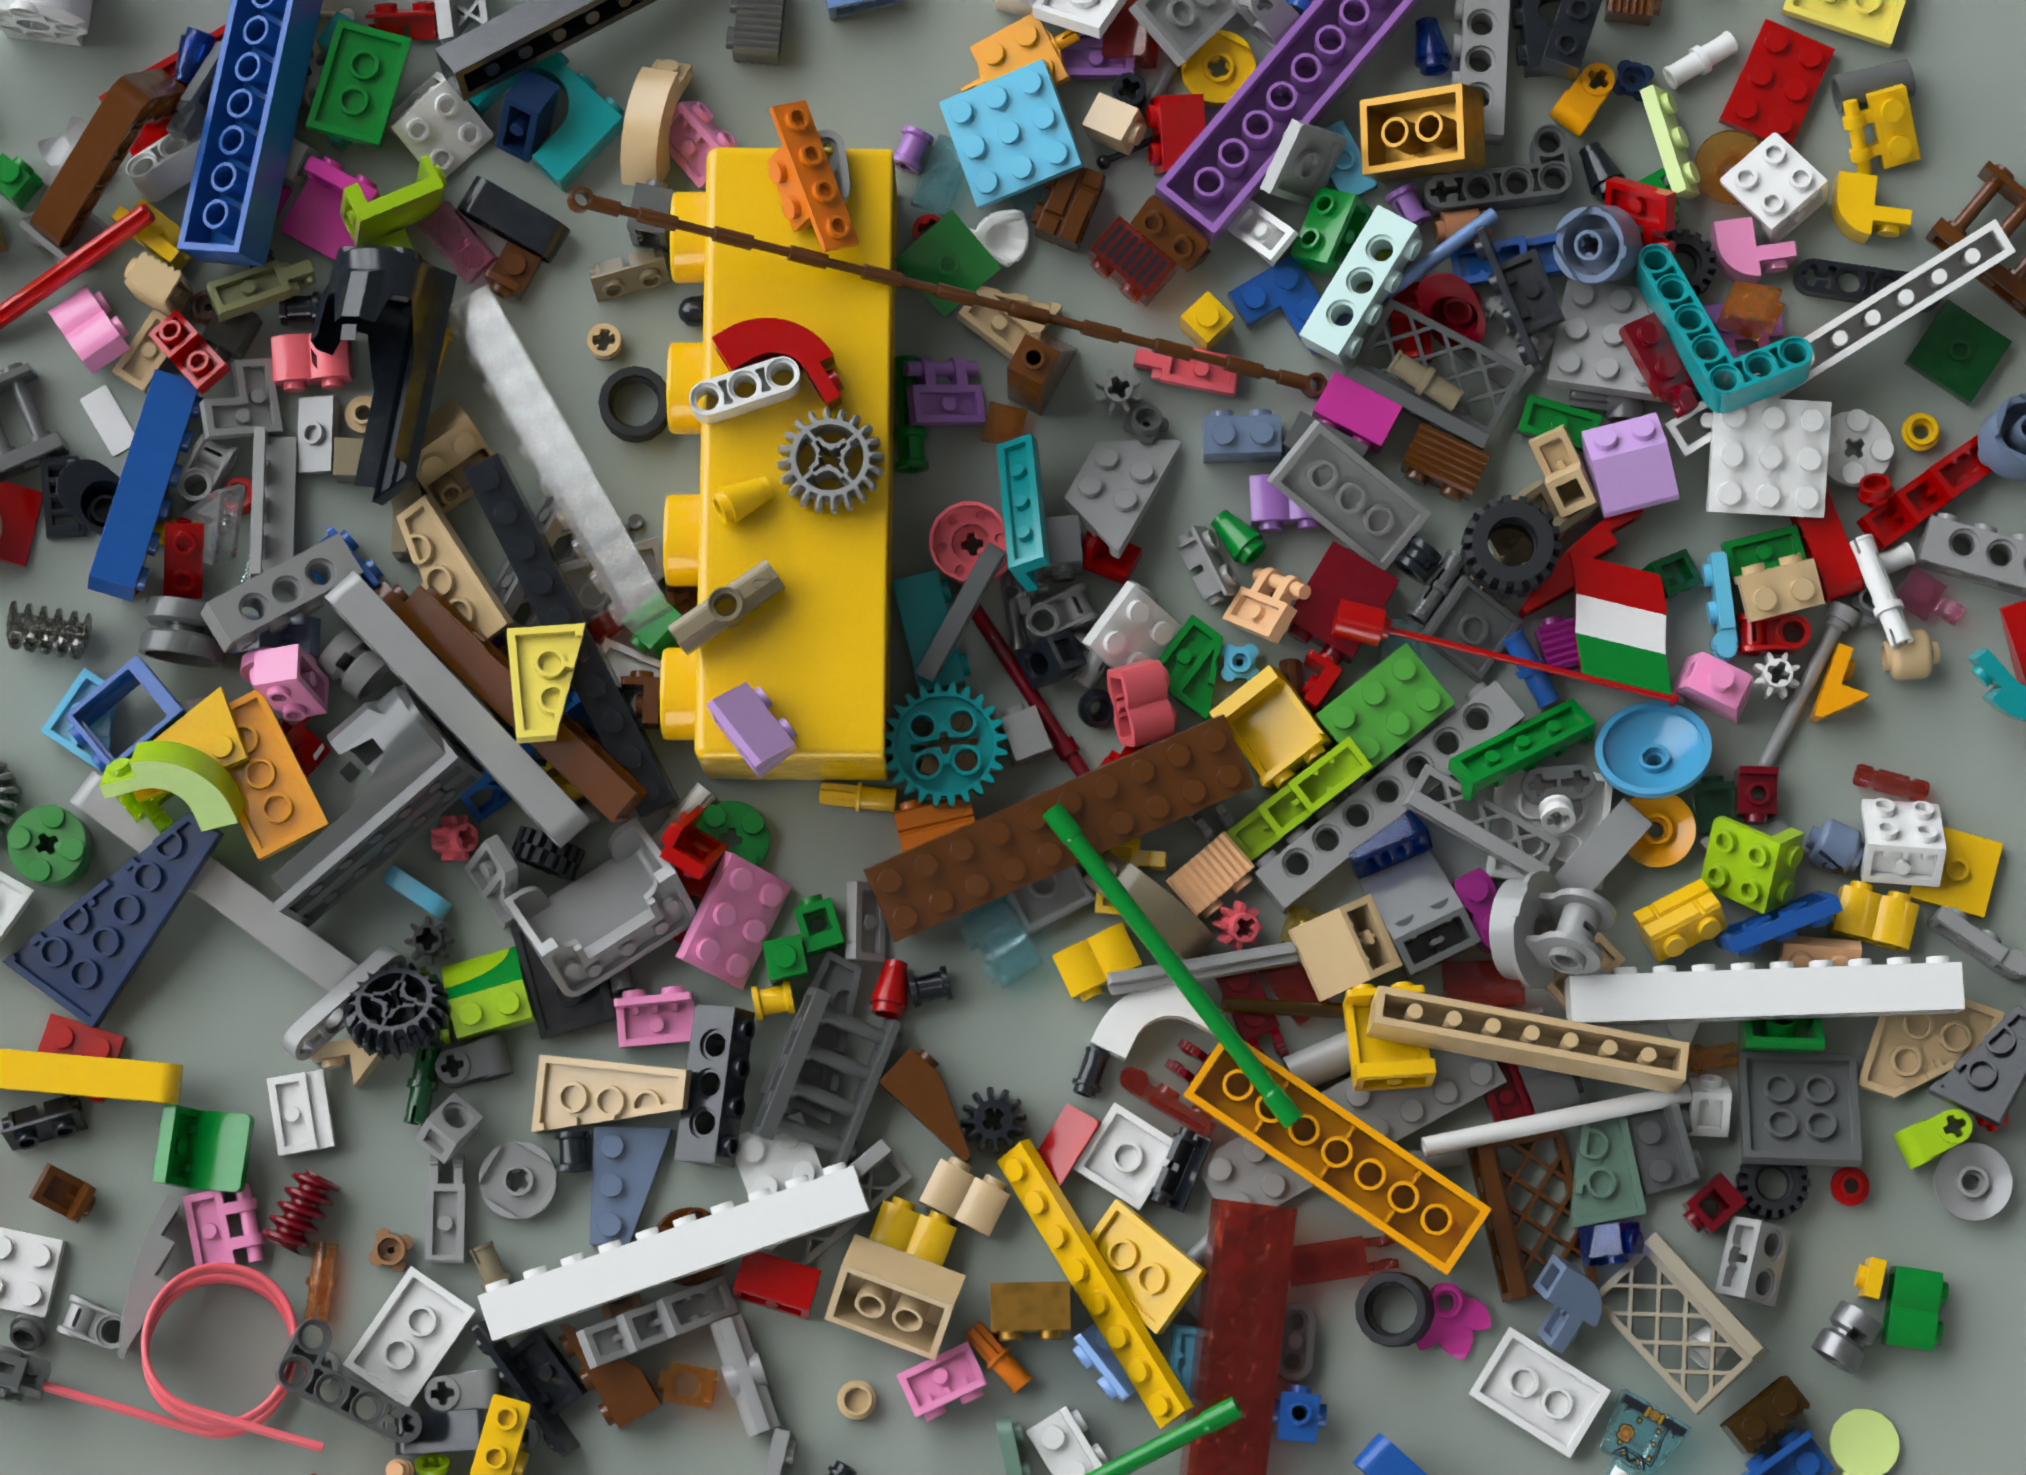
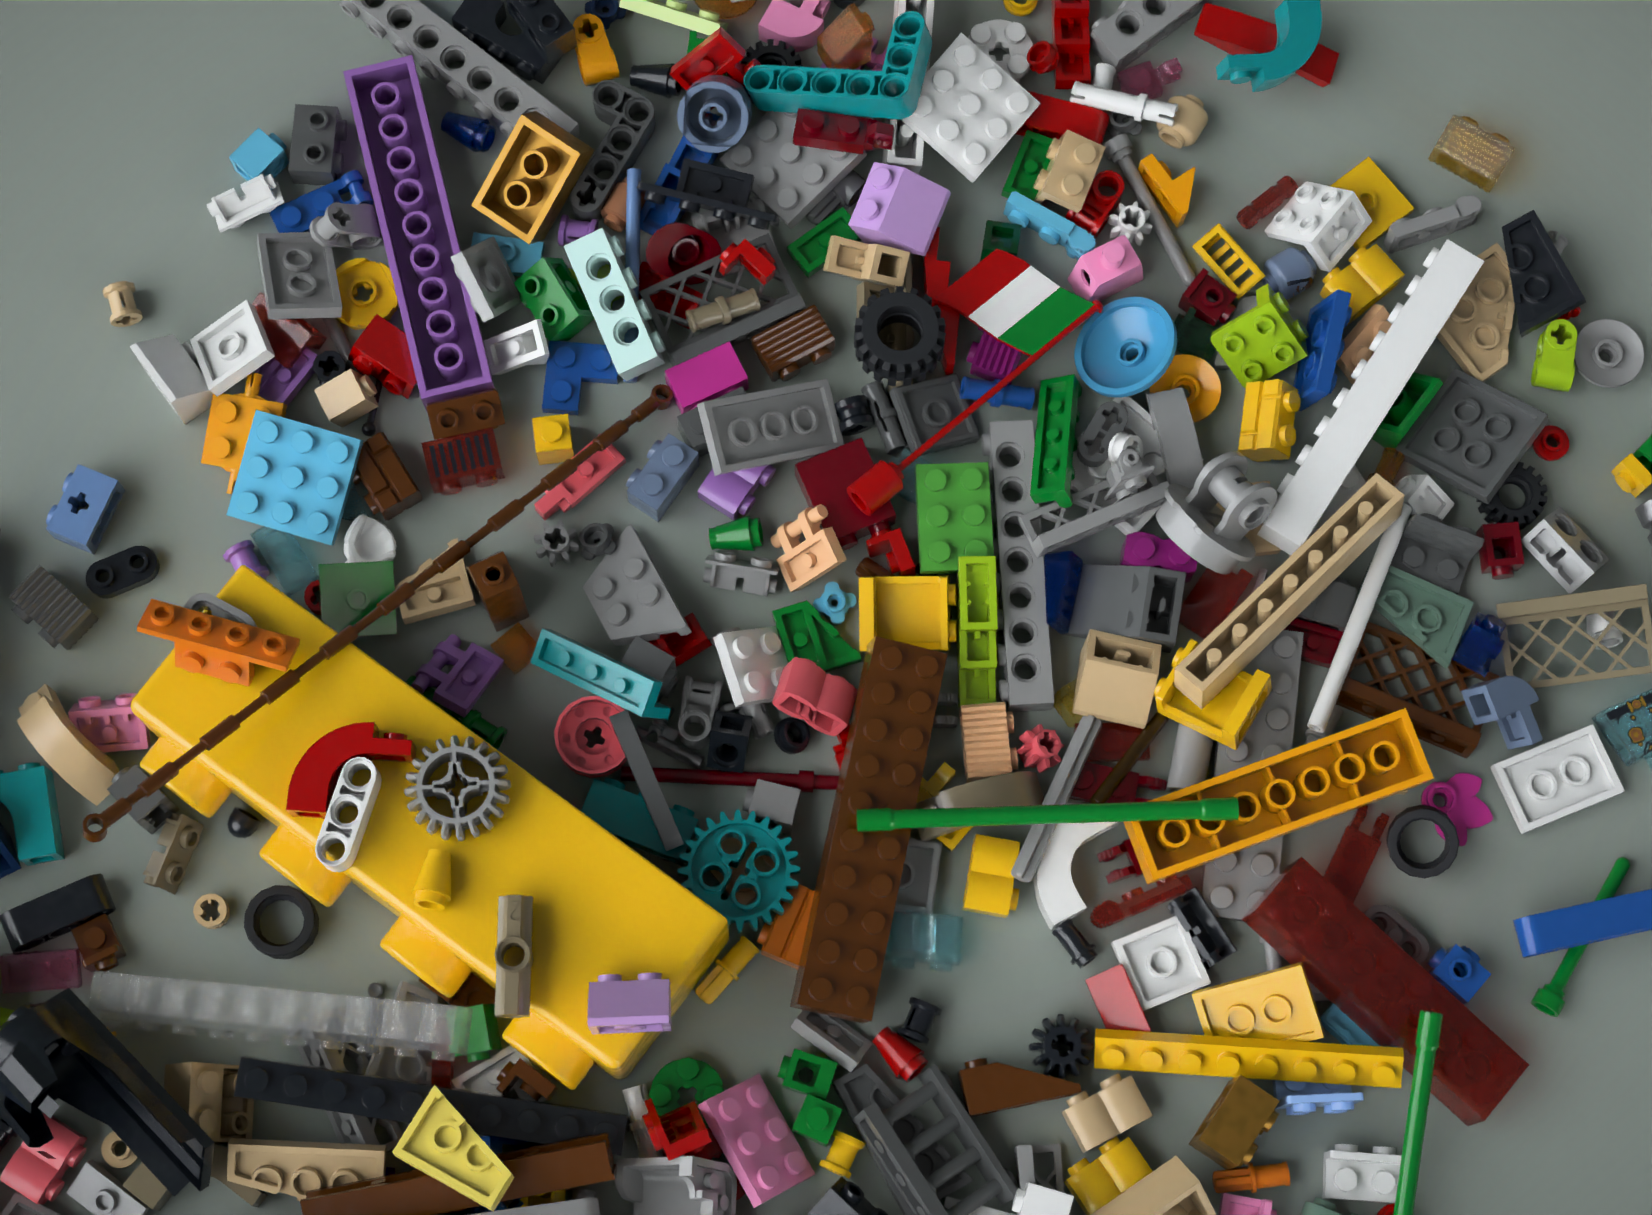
camera: 60 degrees left, 5 degrees down
(829, 55) = (122, 574): none -> black plate
(1490, 379) = (755, 260): none -> red bracket
(1525, 828) = (1126, 475): none -> light grey hinge
(1799, 754) = (1212, 238): none -> yellow slope

